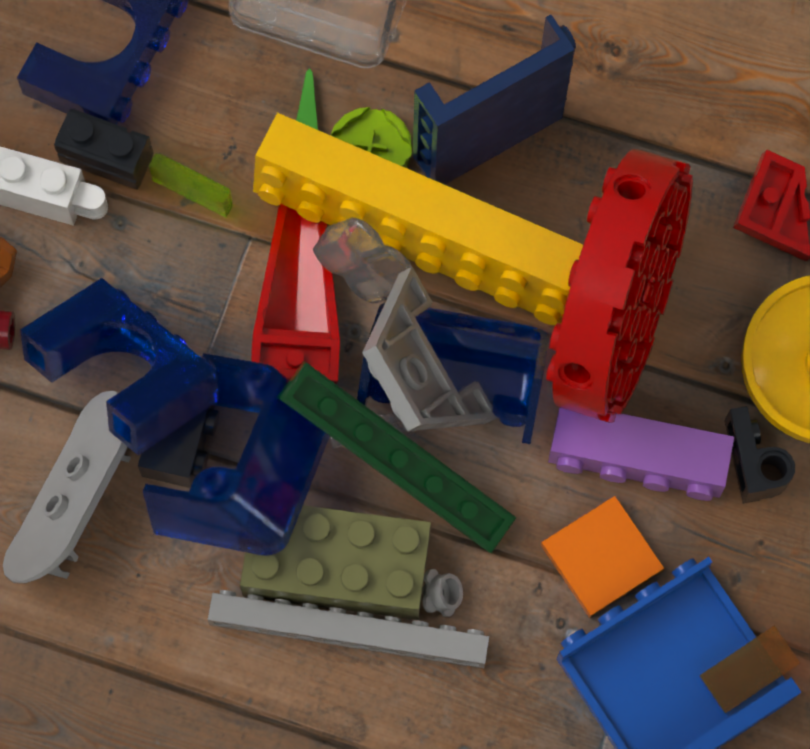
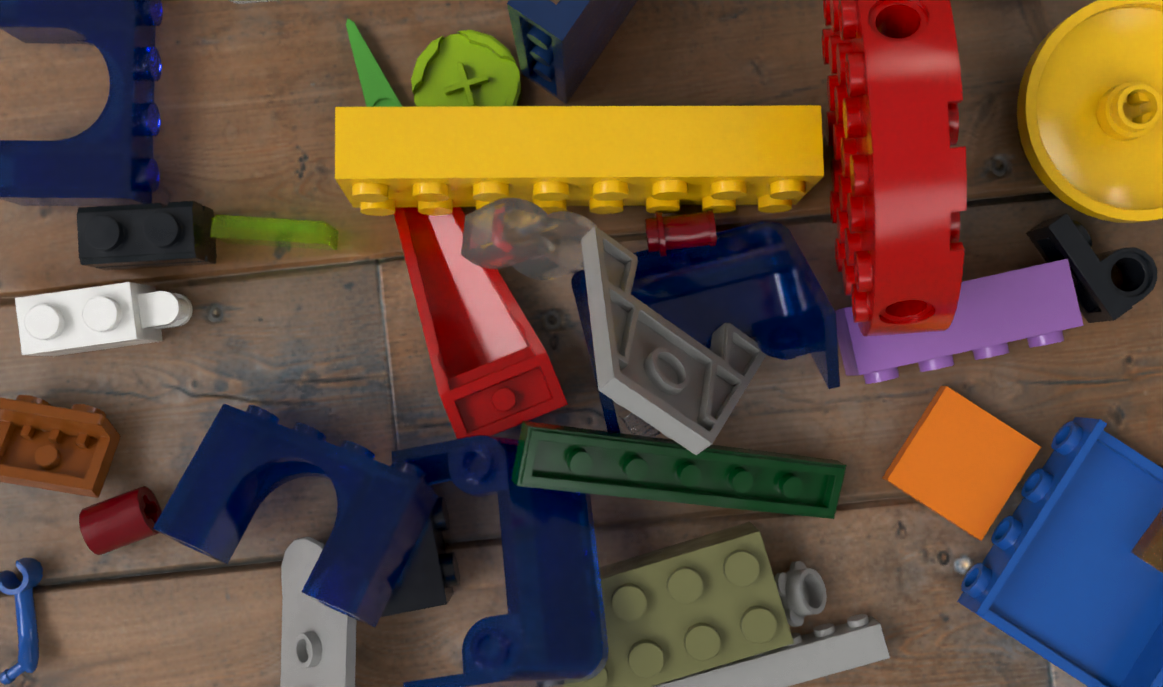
camera: 20 degrees left, 15 degrees up
(471, 304) = (680, 231): none -> dark red pin

